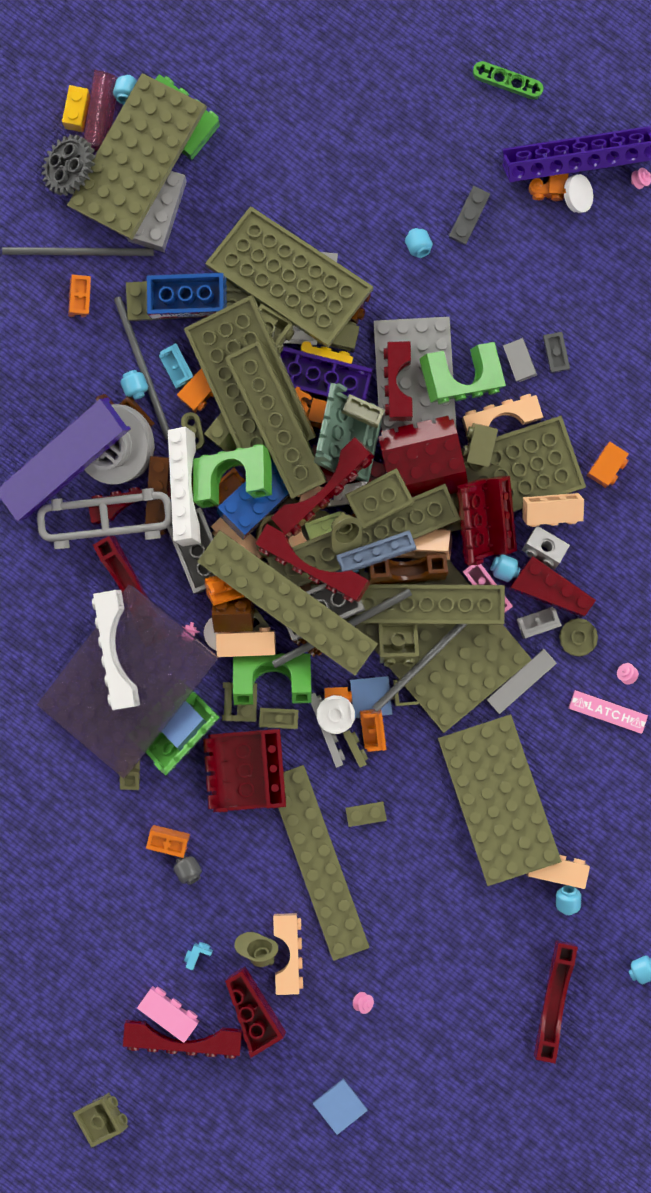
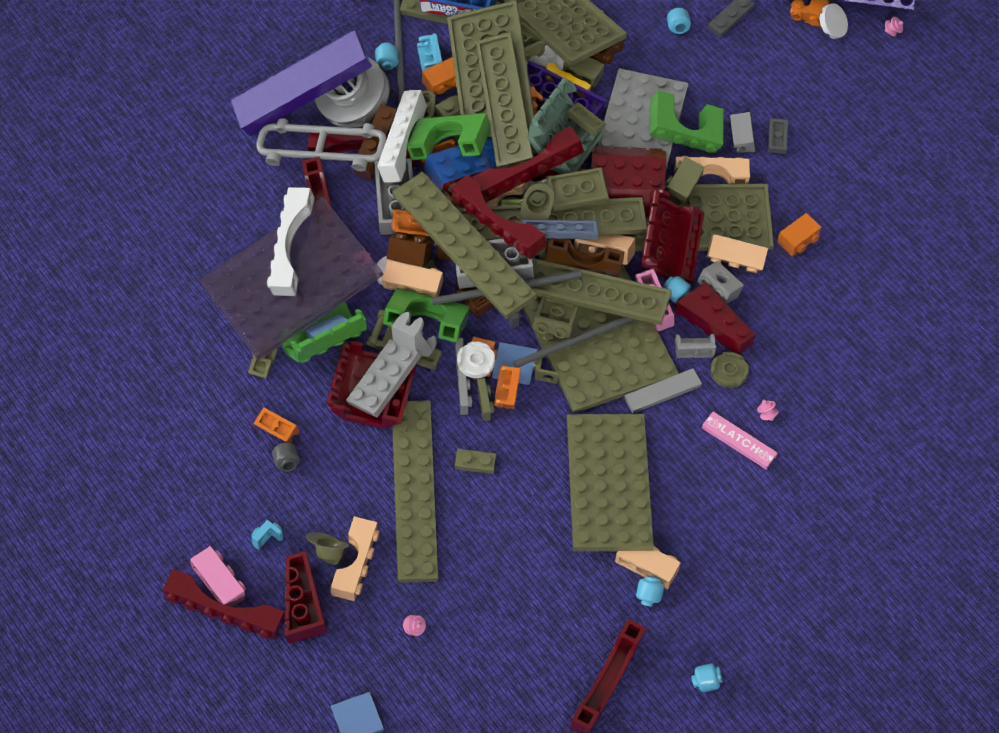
camera: 15 degrees right, 25 degrees down
(101, 1119) = (114, 654): olive plate -> none
(258, 752) = (392, 365): none -> light grey hinge
(398, 357) = (621, 127): dark red arch -> none

